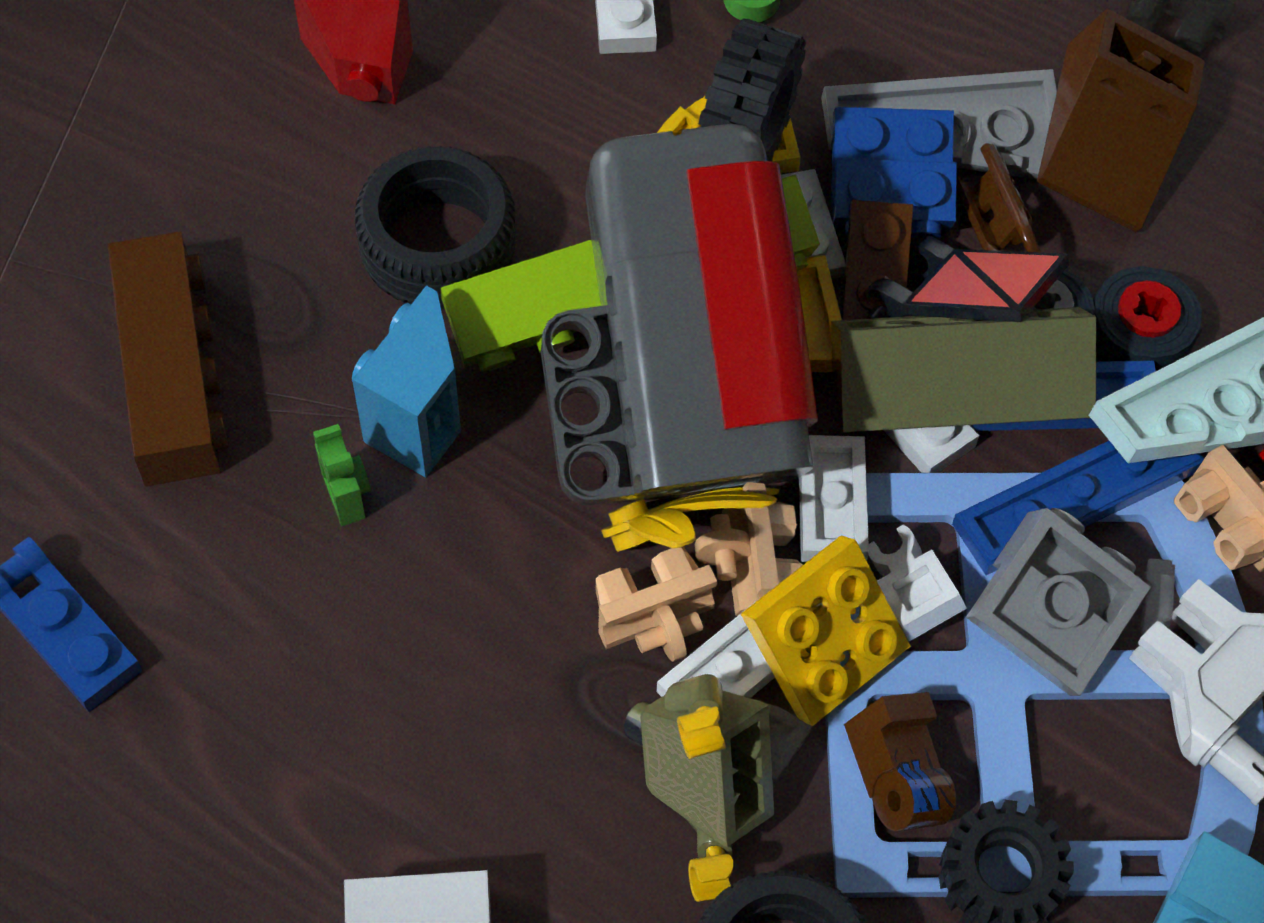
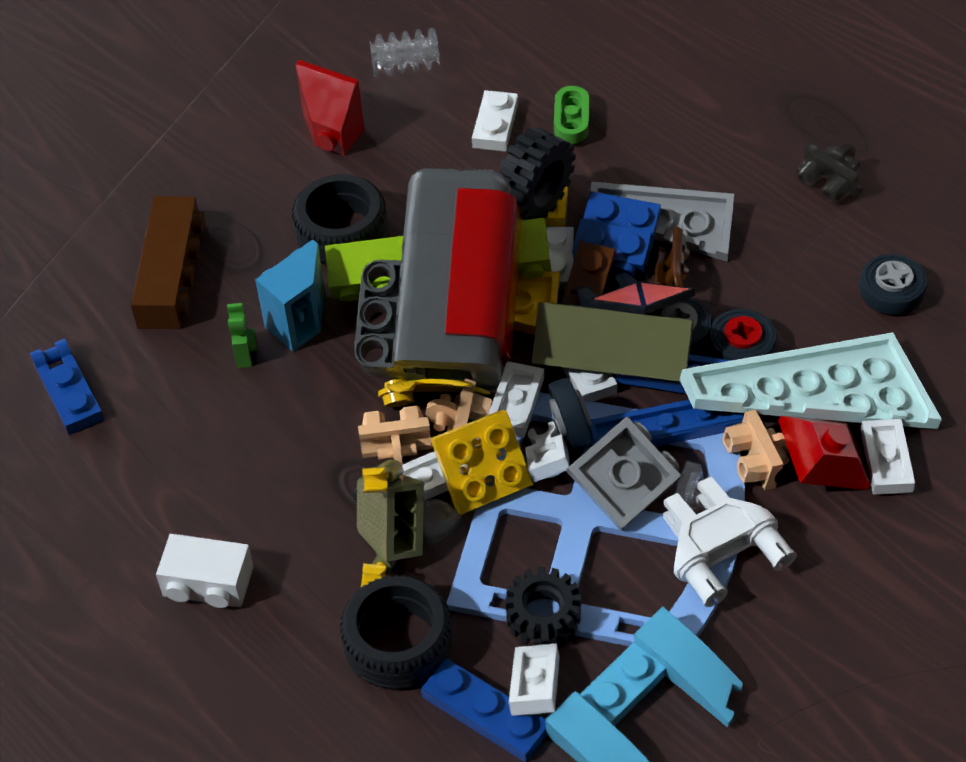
camera: 20 degrees right, 10 degrees down
(901, 762) = (504, 539): reddish brown leg -> none
(939, 511) = (570, 413): none -> black wheel
(1118, 117) = (761, 226): reddish brown slope -> none

